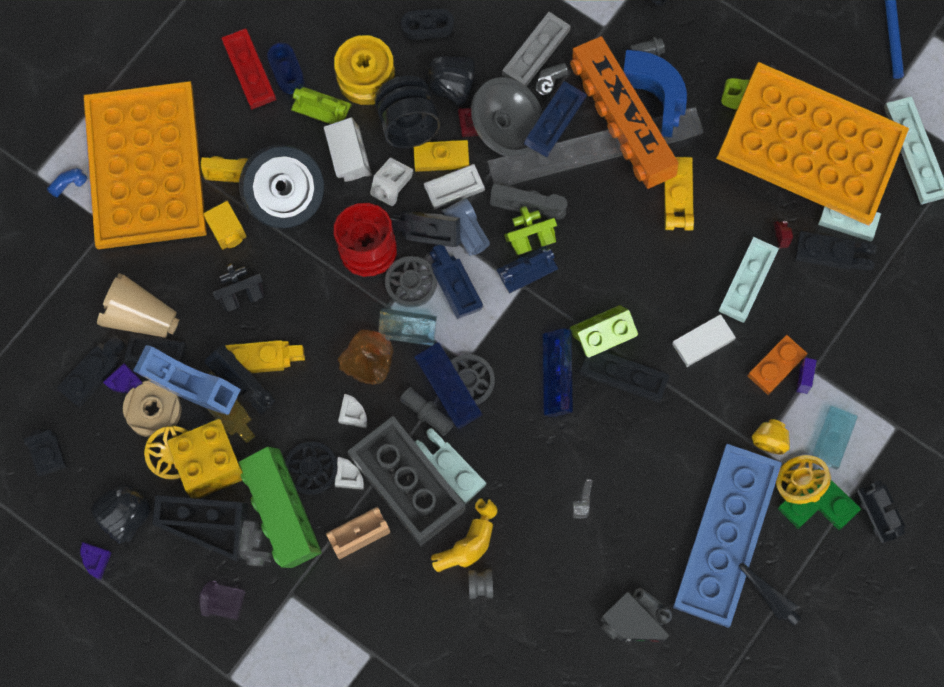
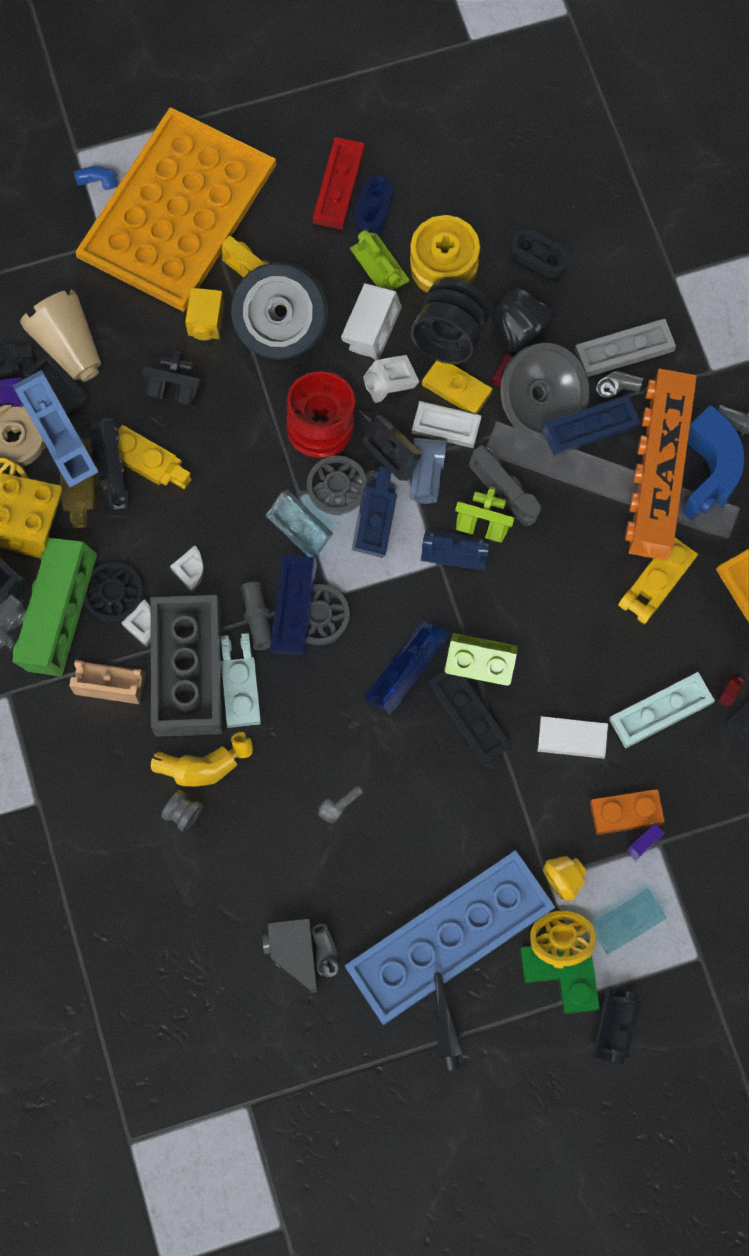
camera: 35 degrees right, 0 degrees up
(367, 357) = (239, 525): clear orange hair -> none

